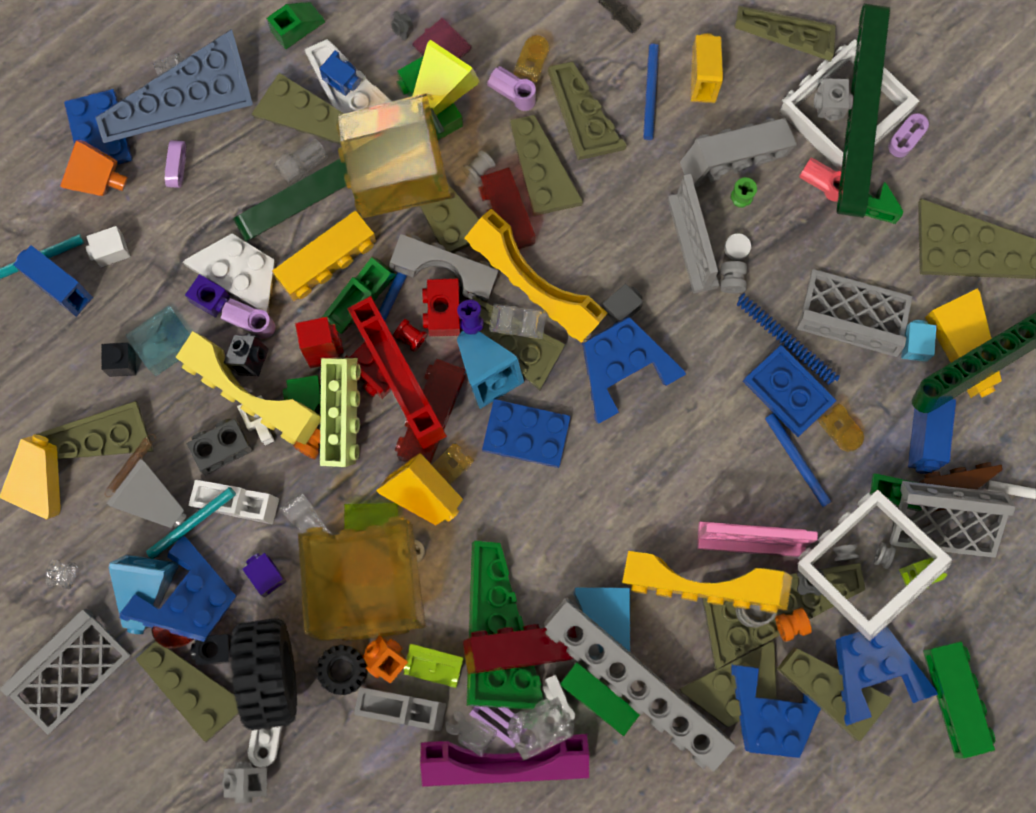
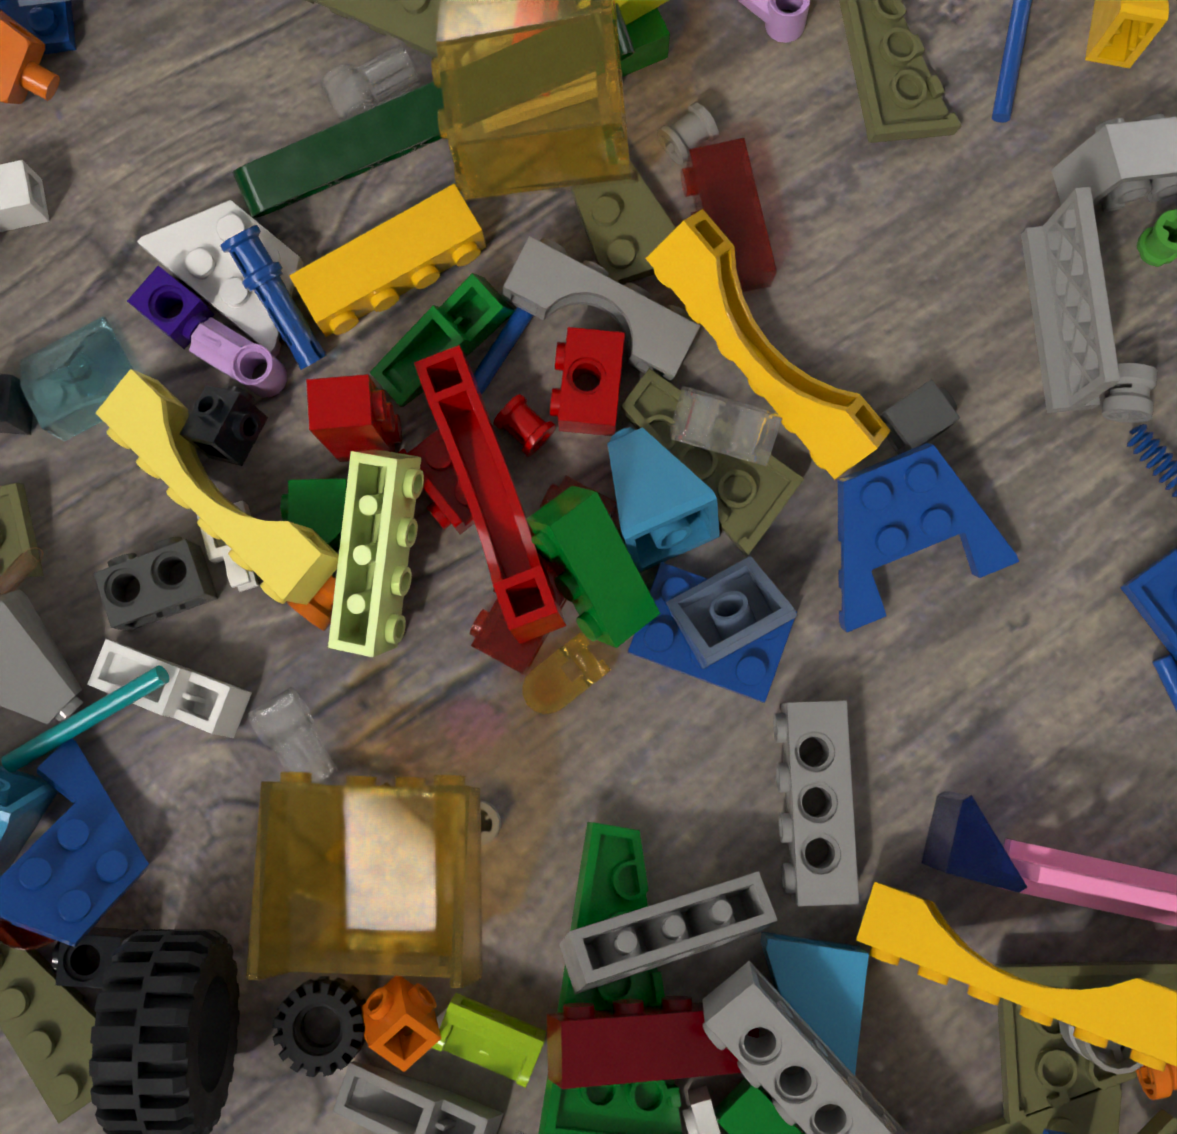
camera: 15 degrees right, 5 degrees up
(175, 164) = (146, 62): lavender beam -> none
(258, 273) = (264, 279): none -> blue pin
(263, 574) = (203, 830): dark purple brick -> none
(370, 514) = (411, 748): clear neon green tile -> none
(421, 491) = (508, 718): yellow slope -> none
(457, 404) = (592, 566): none -> green brick
(469, 312) = (638, 402): dark purple bush -> none
(520, 589) = (666, 932): none -> light grey brick
(533, 420) = (729, 611): none -> sand blue slope
(543, 174) = (802, 158): olive wing -> none
(592, 472) = (836, 877): none -> light grey brick
(675, 526) = (966, 845): none -> clear blue slope
(737, 247) = (1141, 337): white tile -> none

